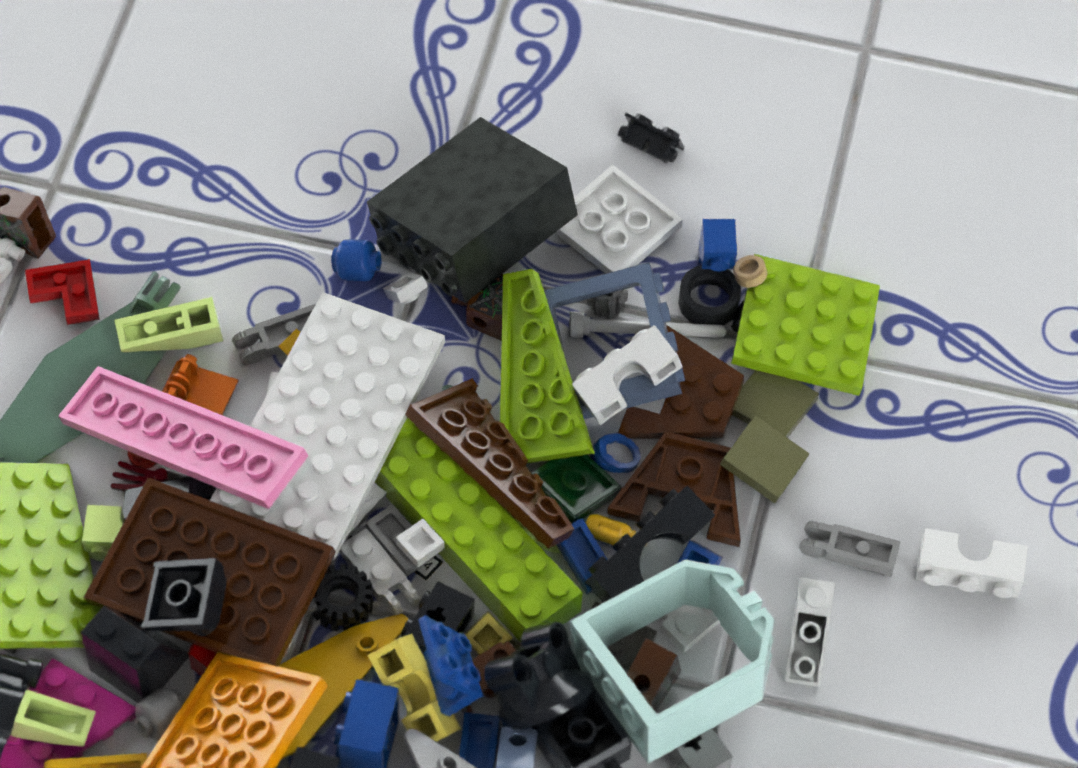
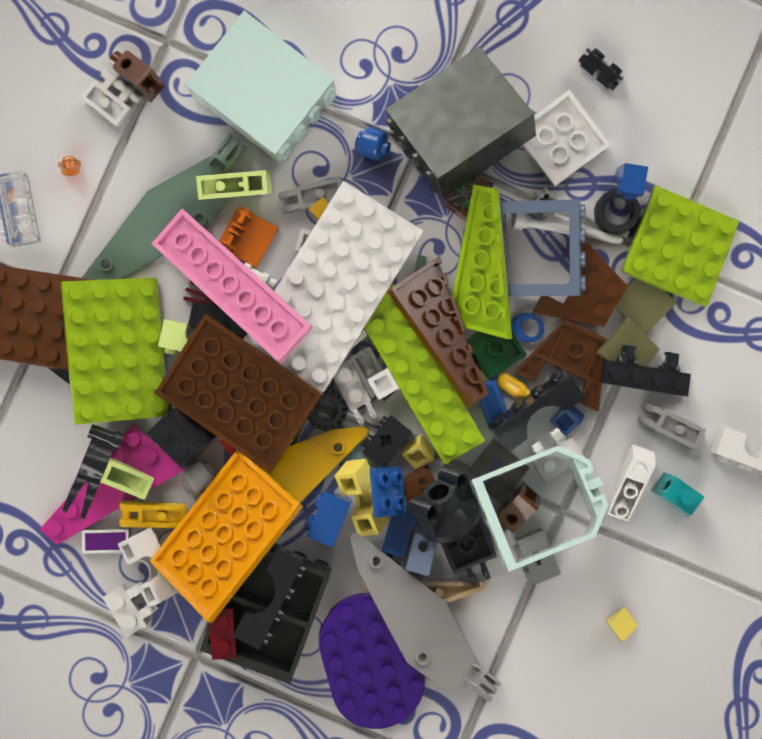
camera: 10 degrees right, 30 degrees up
(67, 281) = (172, 130): red plate -> none
(186, 596) = (218, 416): black slope -> none
(193, 211) = (262, 87): none -> light aqua container
(406, 288) = (404, 172): white plate -> none
(645, 354) = (525, 292): white arch -> none
(750, 271) = (650, 203): tan tile -> none
(822, 488) = (627, 373): none -> black hinge
(883, 630) = (678, 494): none -> teal torso

